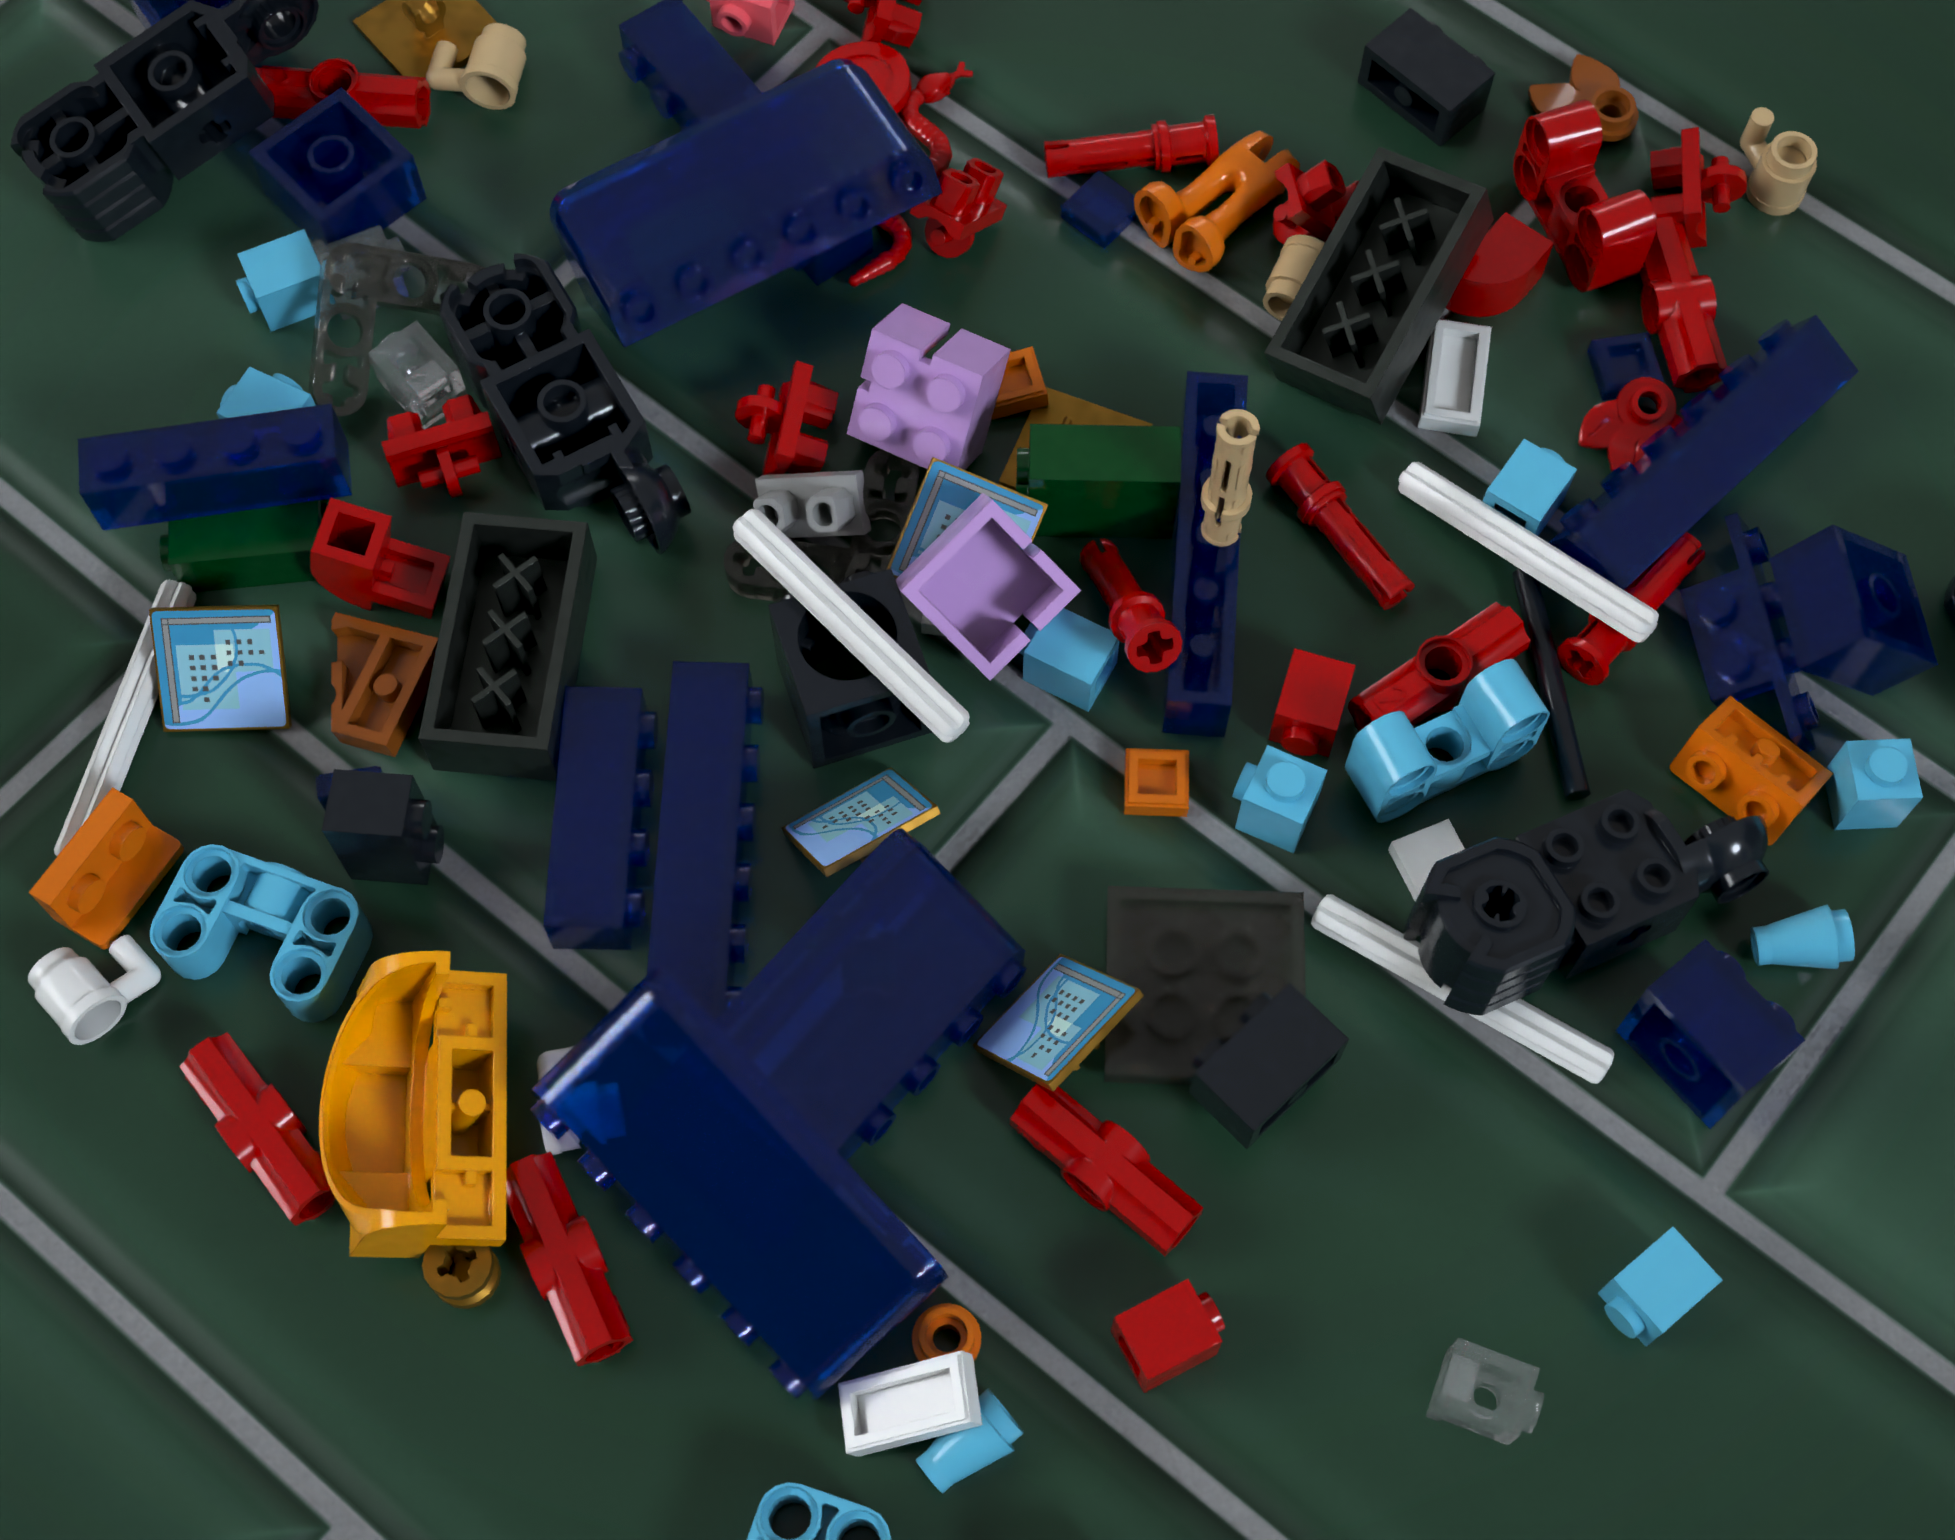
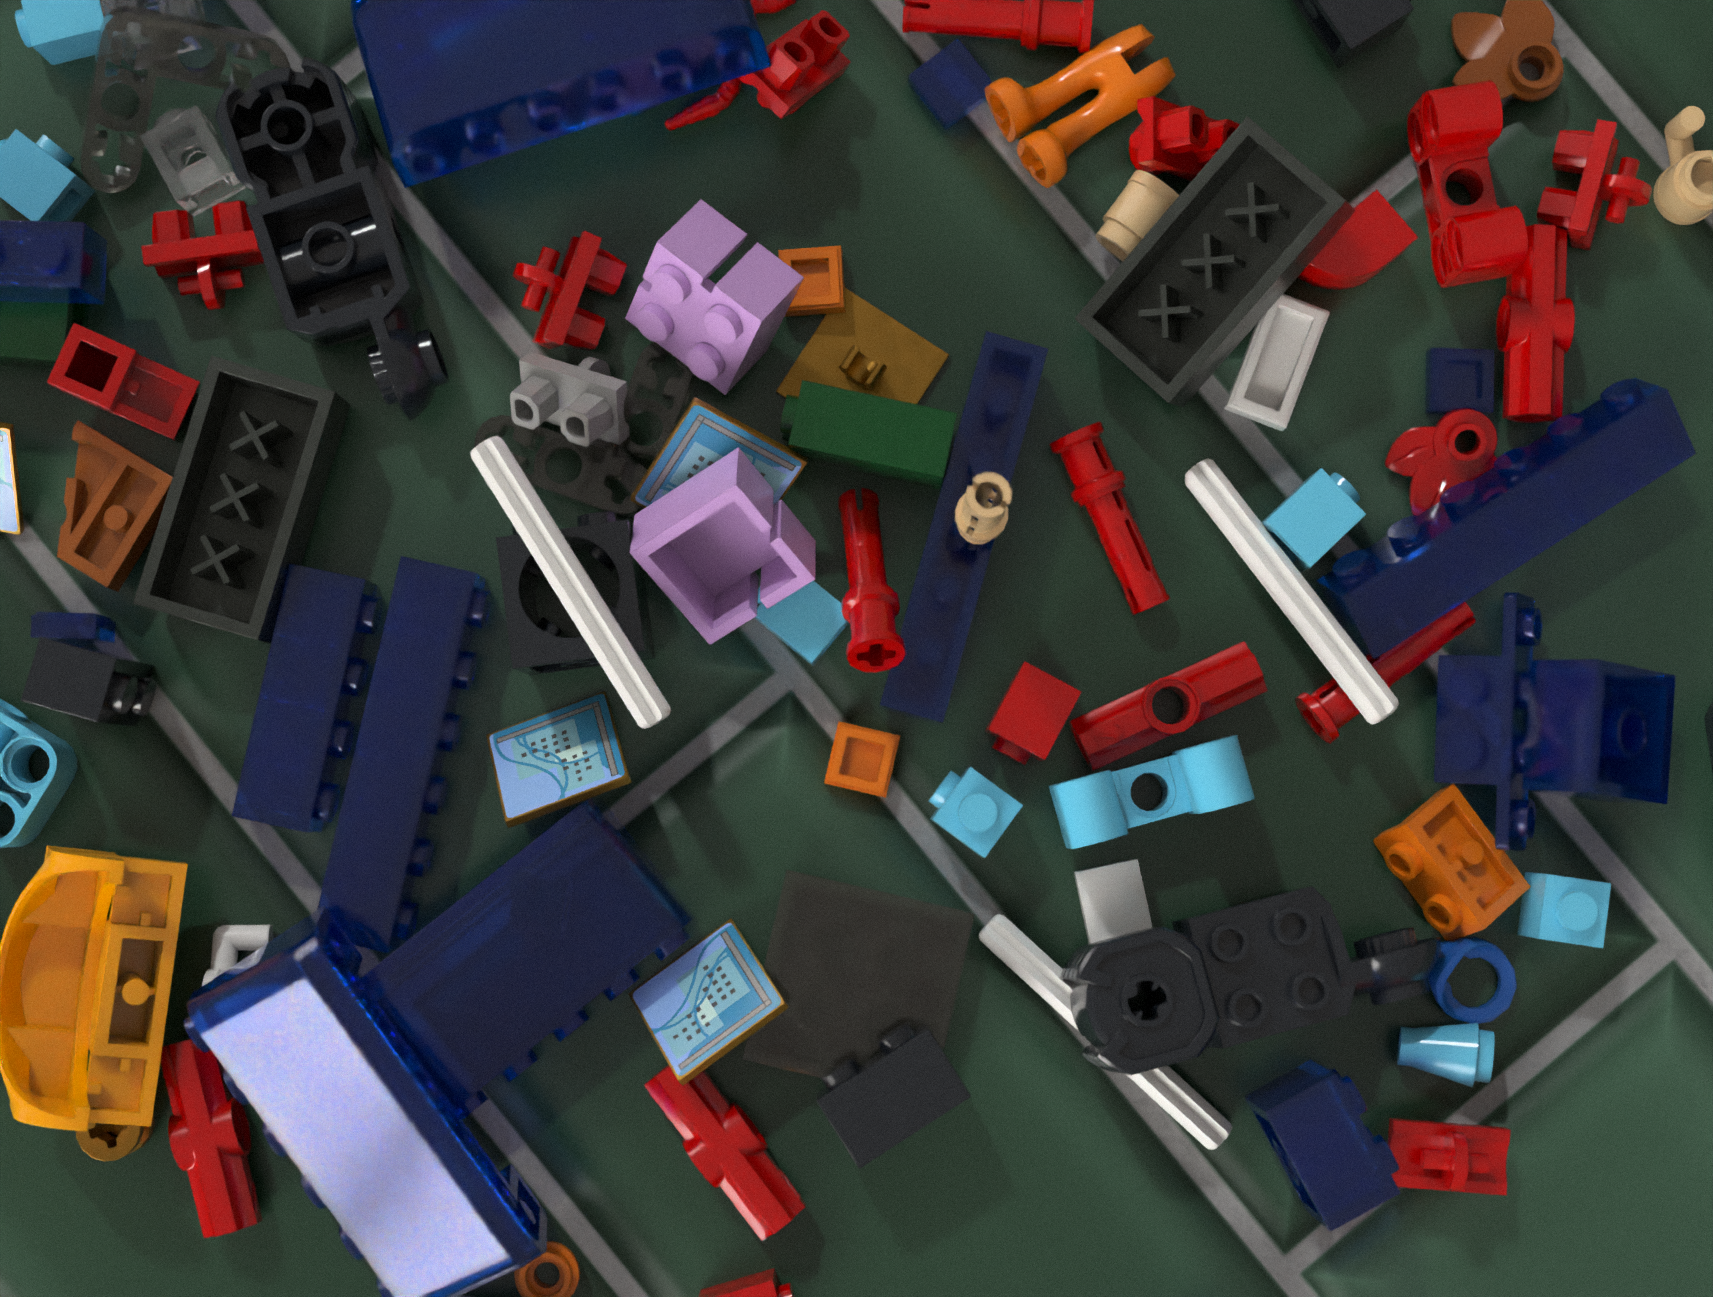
camera: 10 degrees right, 20 degrees up
(1551, 686) = (1279, 735): black bar -> none
(1810, 843) = (1472, 947): none -> blue piece
(1844, 1032) = (1449, 1156): none -> red hips

